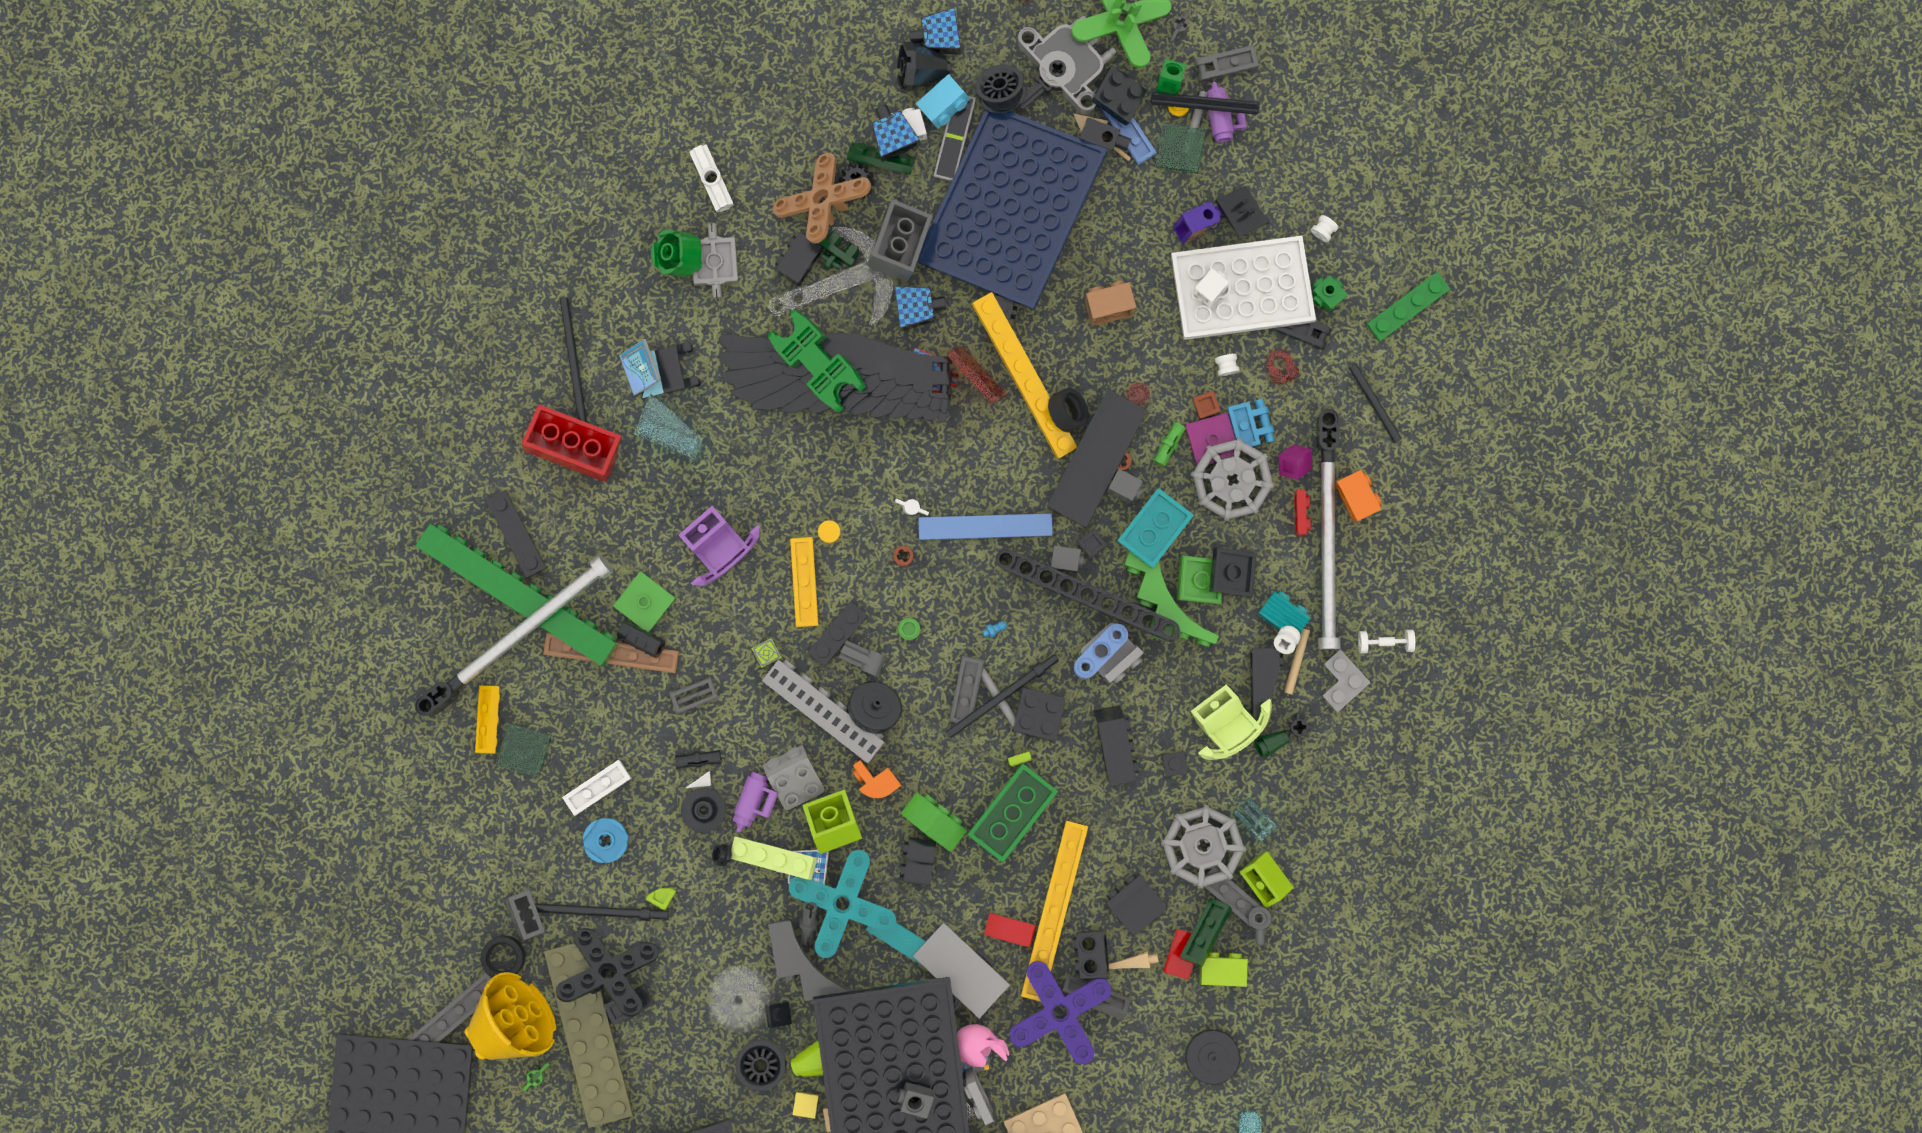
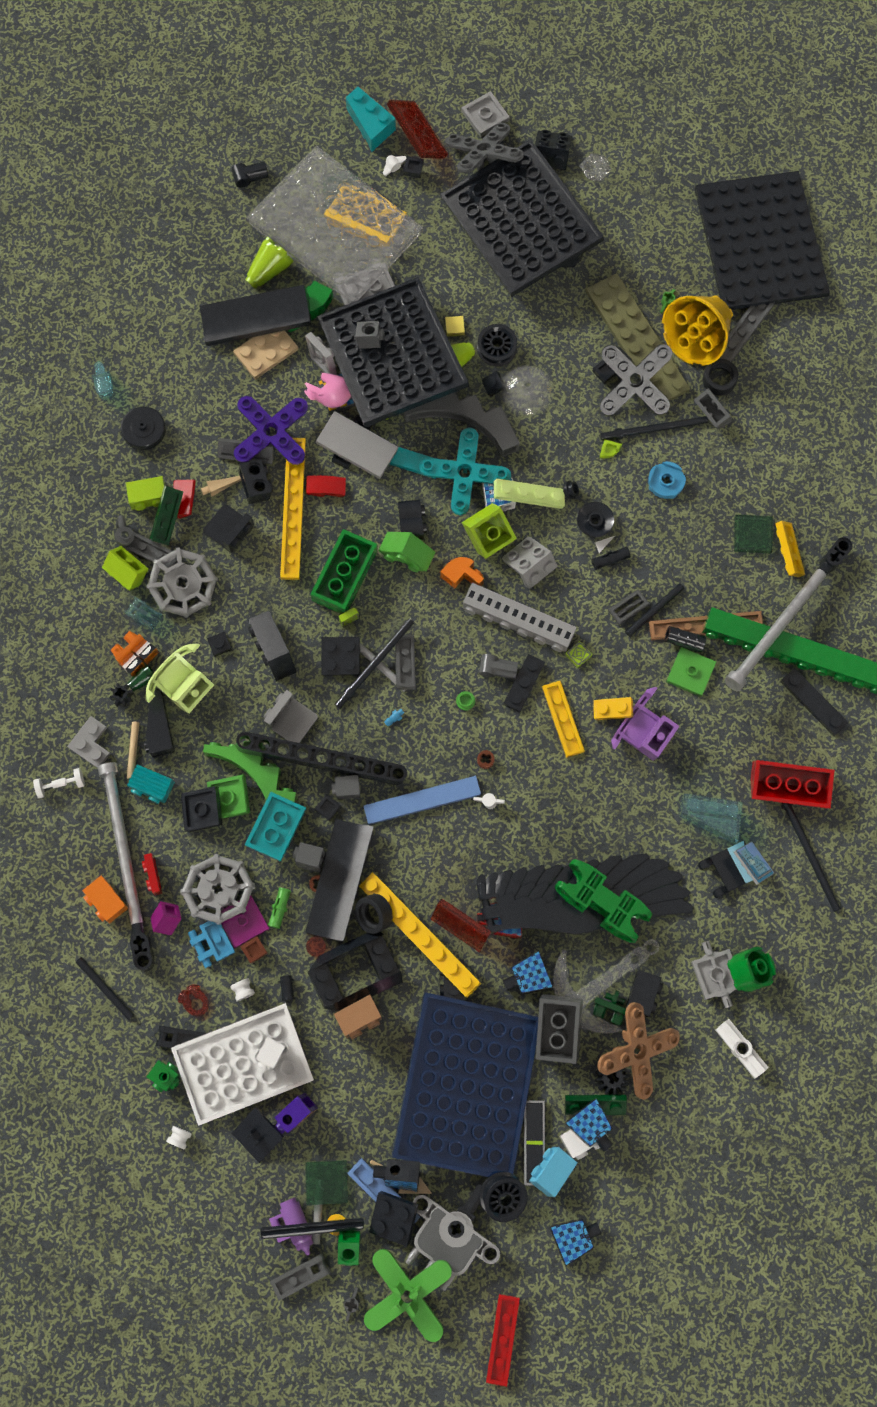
camera: 165 degrees right, 10 degrees down
(597, 787) = (685, 517): white plate -> none
(664, 685) = (654, 610): none -> black bar
(745, 578) = (613, 708): none -> yellow plate
(751, 800) = (559, 535): medium lavender piece -> none
(808, 923) = (487, 451): dark grey pin -> none
(829, 531) = (553, 765): yellow tile -> none
(874, 707) = (478, 629): black wheel -> none
(920, 66) = (582, 1200): black cone -> none
(1072, 365) = (380, 959): none -> black wedge
(1106, 640) = (301, 706): medium blue piece -> none
(1179, 356) = (287, 987): none -> black pin
(1283, 769) = (138, 646): none -> orange hips
(1287, 639) = (143, 760): white wheel -> none
(1408, 306) = (90, 1084): green plate -> none

